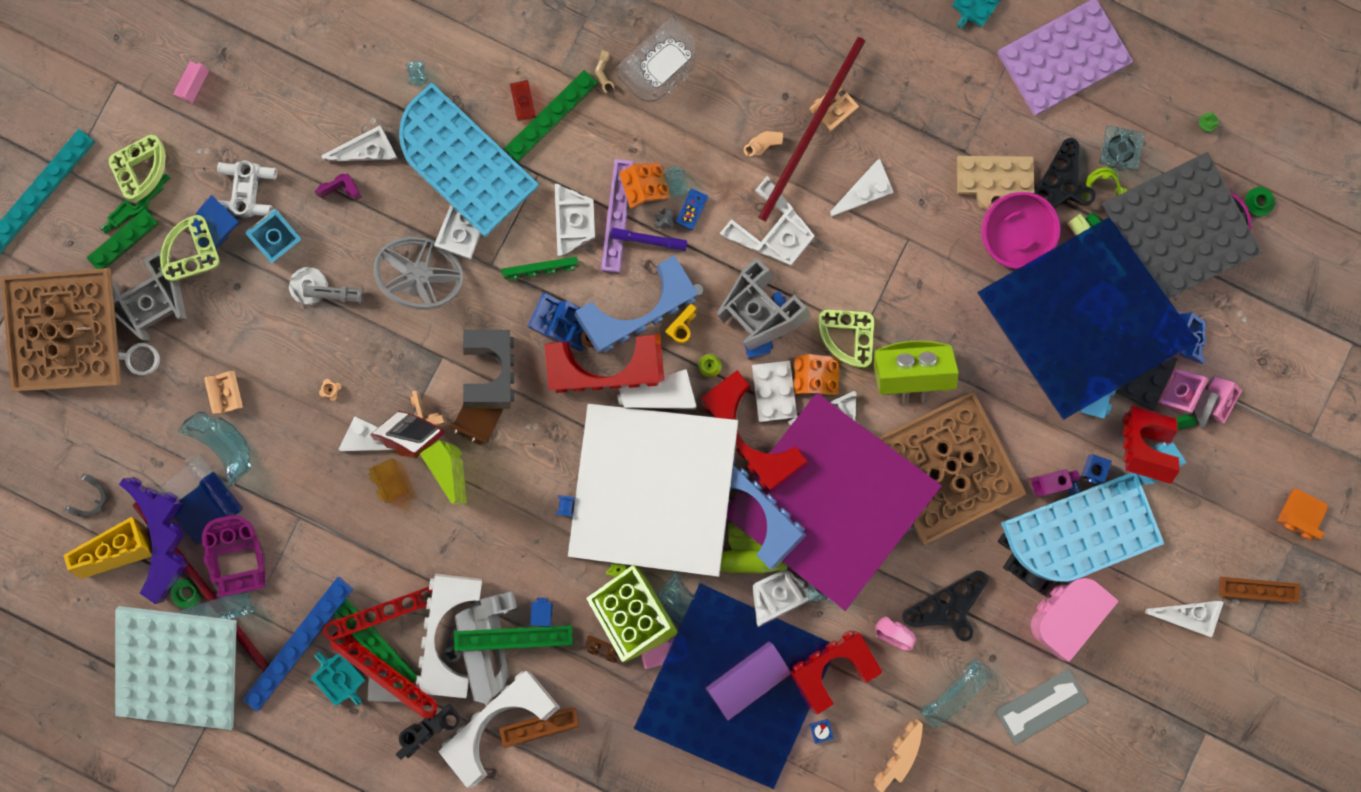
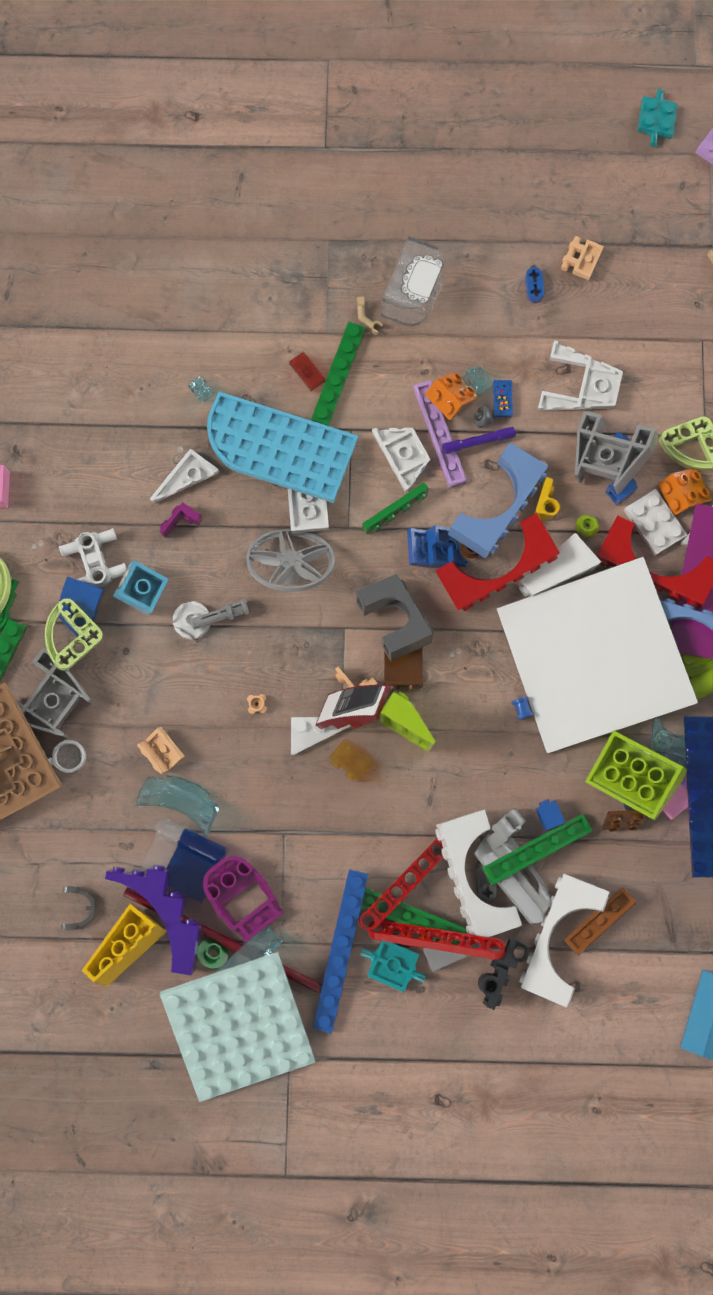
camera: 25 degrees left, 5 degrees down
(613, 570) = (593, 744): lime plate -> none
(762, 142) = (536, 312): light nougat arm -> none
(772, 111) = (538, 284): none -> blue beam
(811, 129) = (574, 283): dark red piece -> none
(869, 188) = (647, 311): white wing -> none

